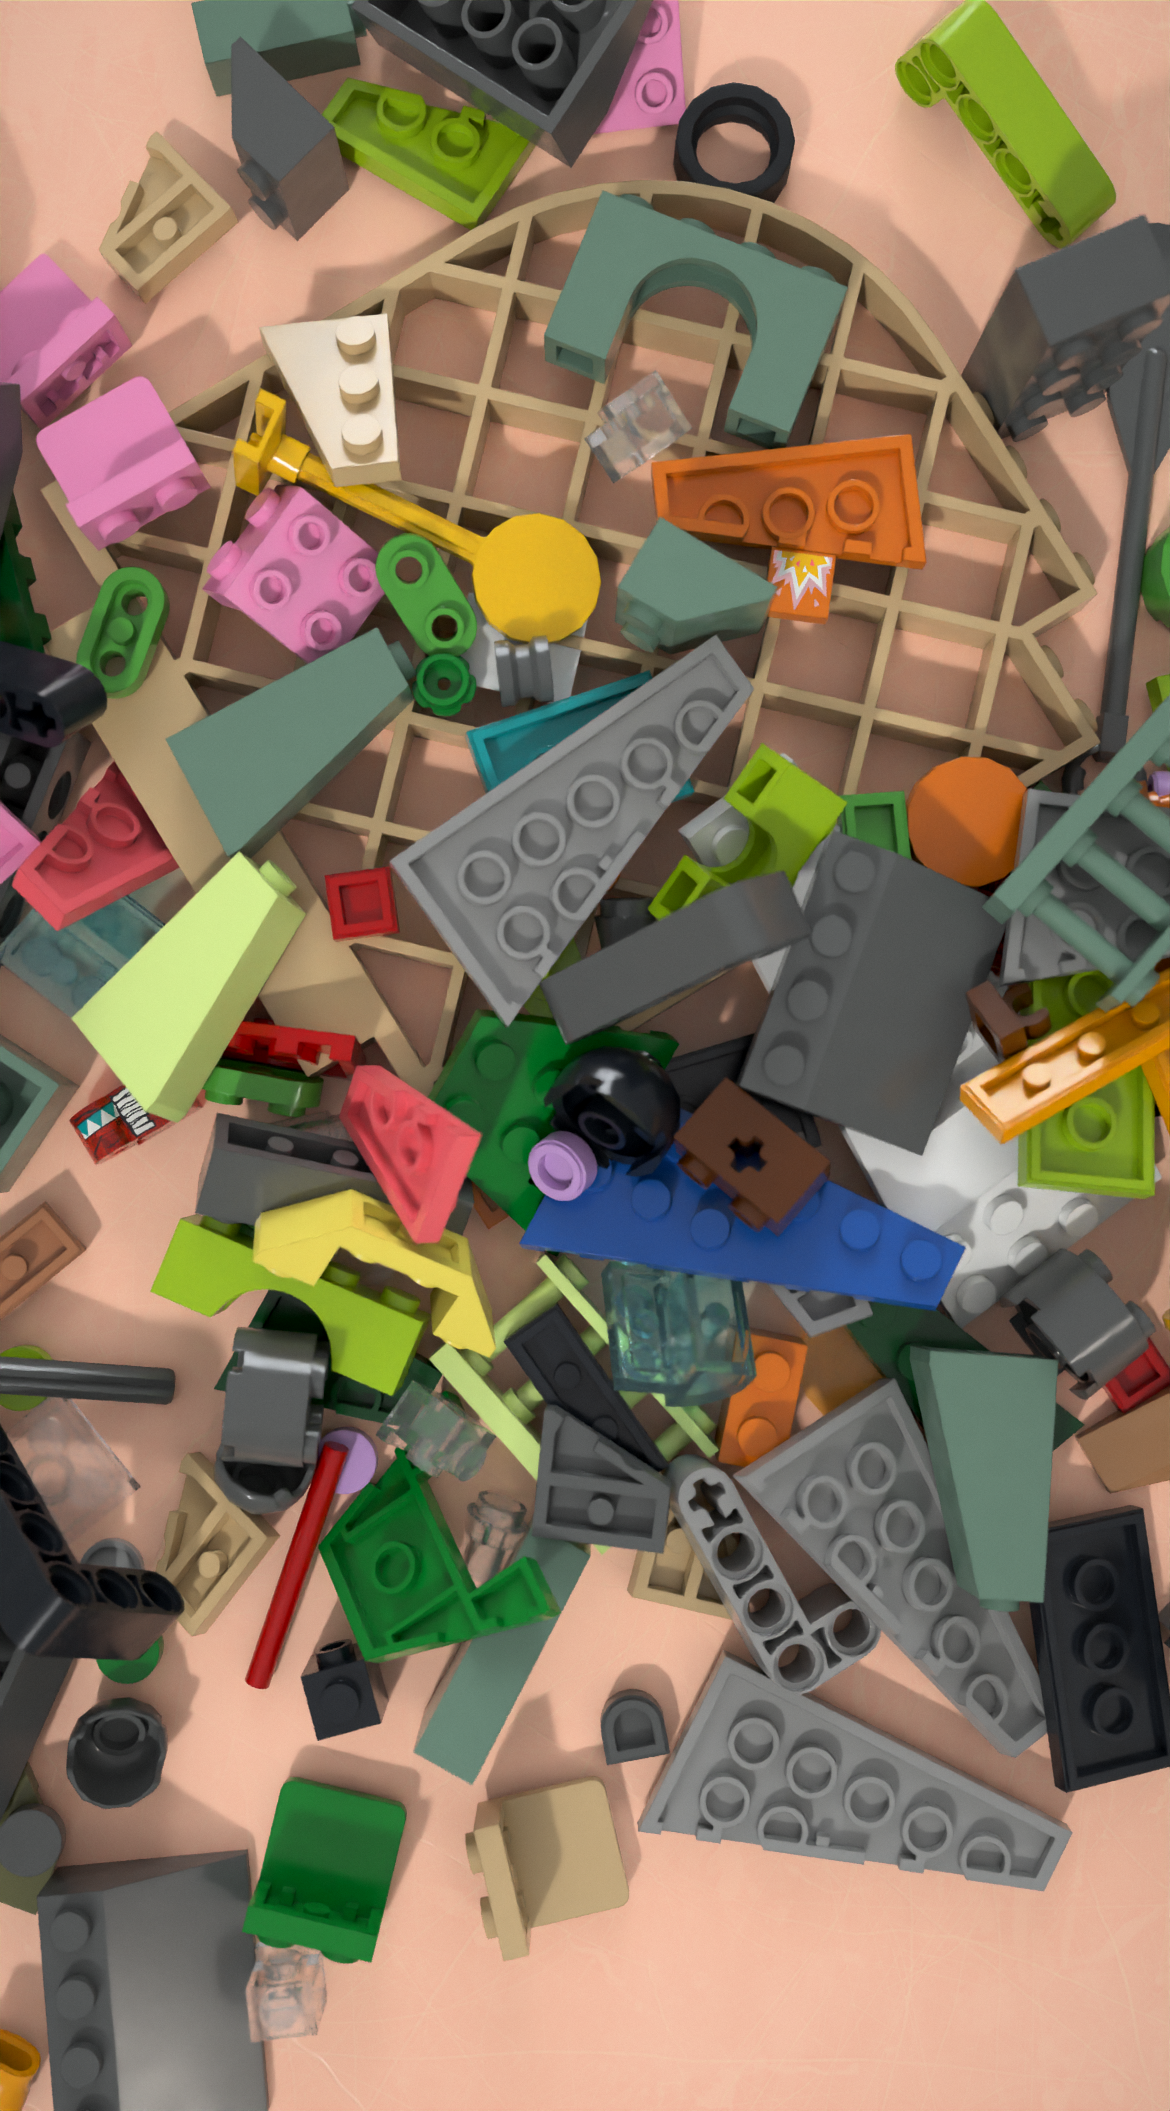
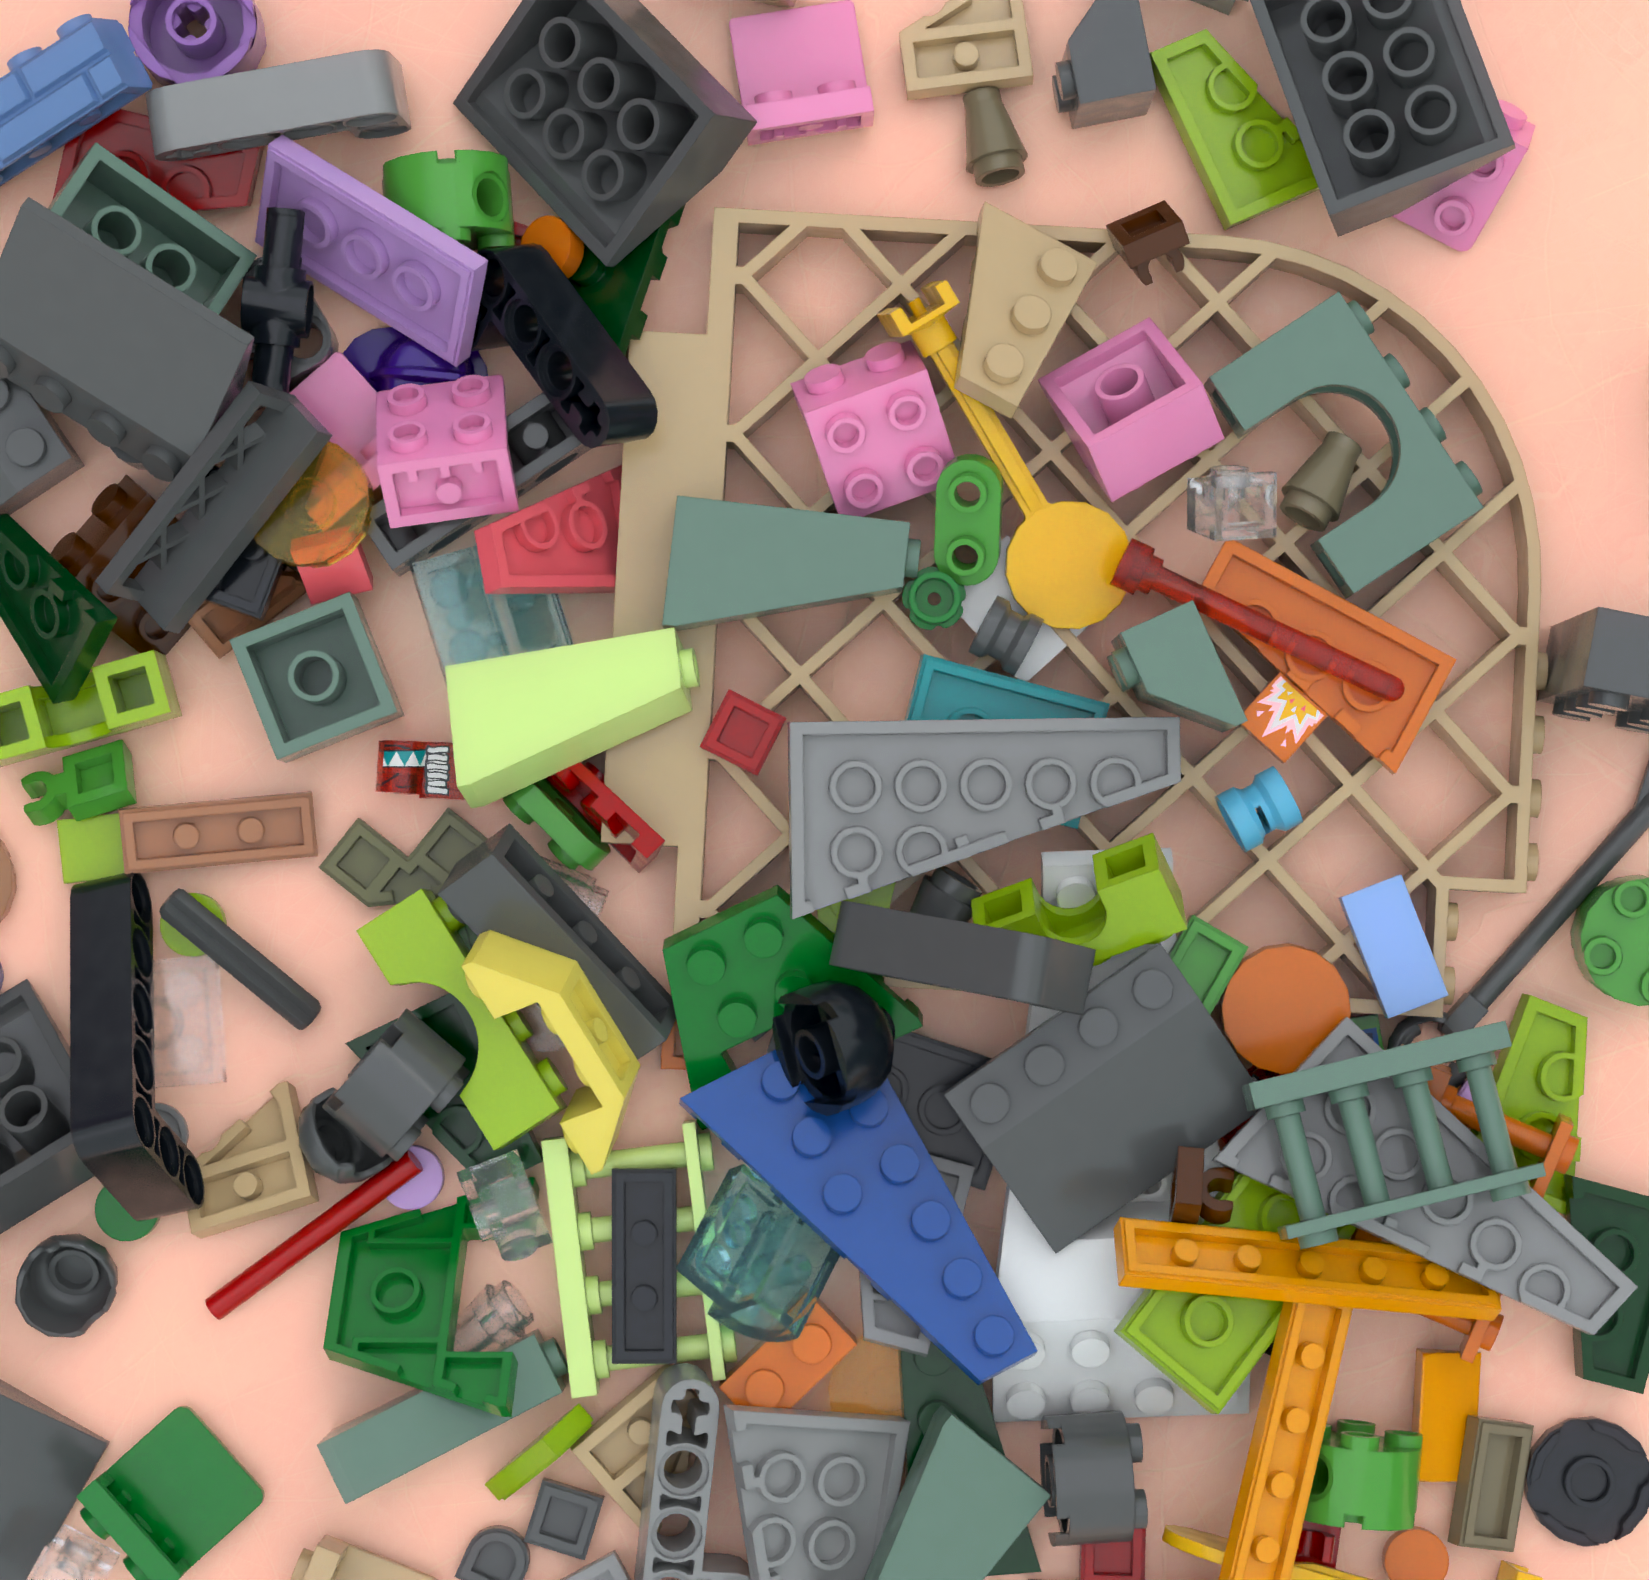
camera: 35 degrees right, 0 degrees up
(118, 634) = (702, 380): bright green plate -> none
(121, 462) = (795, 237): bright pink bracket -> none
(143, 1227) = (384, 874): none -> olive tile
(238, 289) = (992, 142): none -> dark tan cone
(343, 1690) = (285, 1361): black brick -> none
(410, 1147) = (646, 959): coral wing -> none
(412, 262) = (1148, 236): none -> reddish brown tile
(501, 411) = (1132, 408): none -> bright pink slope
(562, 1165) = (758, 1060): lavender tile -> none
(596, 1489) = (605, 1340): dark grey wing -> none
(602, 536) = (1144, 572): none -> clear red piece
(608, 1613) = (540, 1453): none -> lime tile
(664, 1653) = (564, 1518): none -> dark grey tile
(698, 368) = (1320, 485): none -> dark tan cone
(735, 1124) = (921, 1122): reddish brown brick -> none
(740, 105) = (1521, 276): black tyre -> none
(833, 670) = (1273, 804): none -> medium azure wheel
(1021, 709) = (1393, 946): none -> light blue tile

